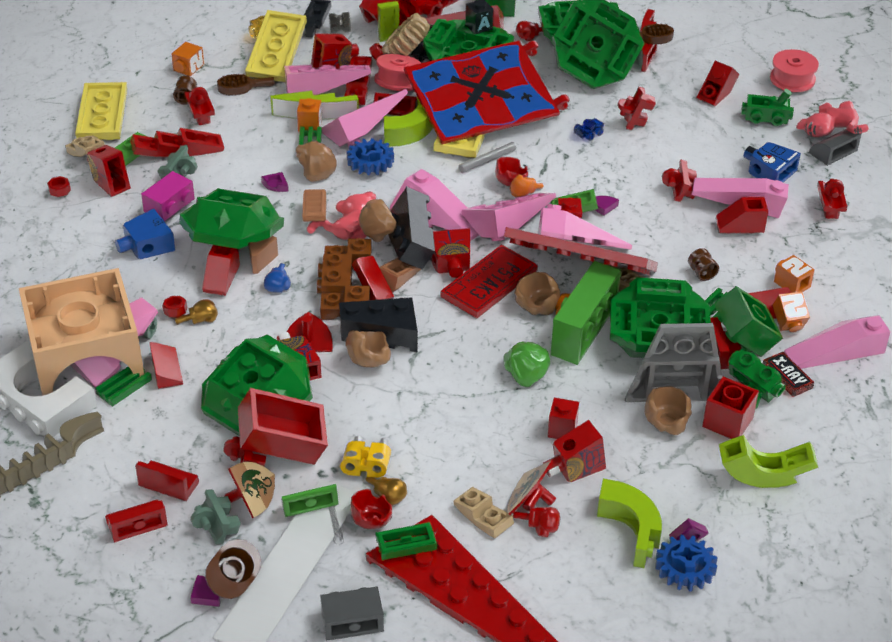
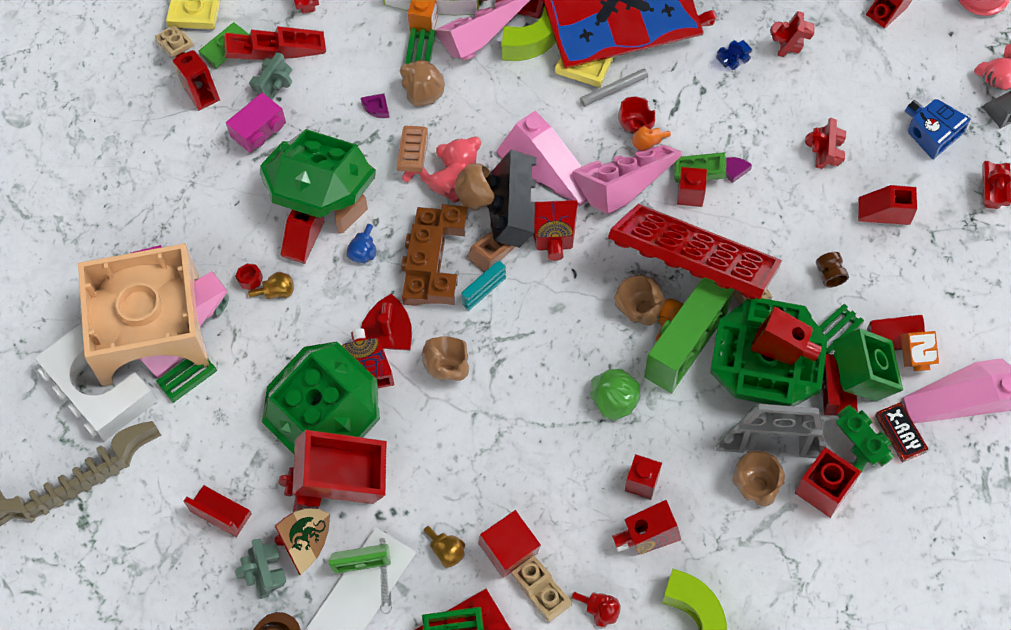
camera: 10 degrees right, 20 degrees up
(59, 186) = (143, 95): red tile -> none
(137, 520) = (181, 559): red panel -> none
(146, 236) = (228, 175): blue torso -> none
(165, 365) = (231, 356): slope -> none
(369, 459) = (425, 506): yellow piece -> none
(370, 156) = (483, 79): blue gear -> none
(370, 511) = (422, 578): red hair -> none
(371, 275) = (462, 260): red slope -> none
(390, 316) = (468, 319): black wedge -> none
(399, 289) = (483, 285): none -> teal tile
(448, 474) = (509, 543): none -> red head
(488, 281) = (587, 271): red tile -> none
(530, 490) = (592, 569): shield -> none
(570, 227) = (683, 210): bright pink wedge -> none
(672, 299) = (784, 338): none -> red torso
(731, 189) = (895, 168): bright pink wedge -> none
(766, 469) = (855, 566): lime arch -> none
(768, 108) = (945, 44): green brick -> none
(794, 274) = (932, 294): orange brick -> none

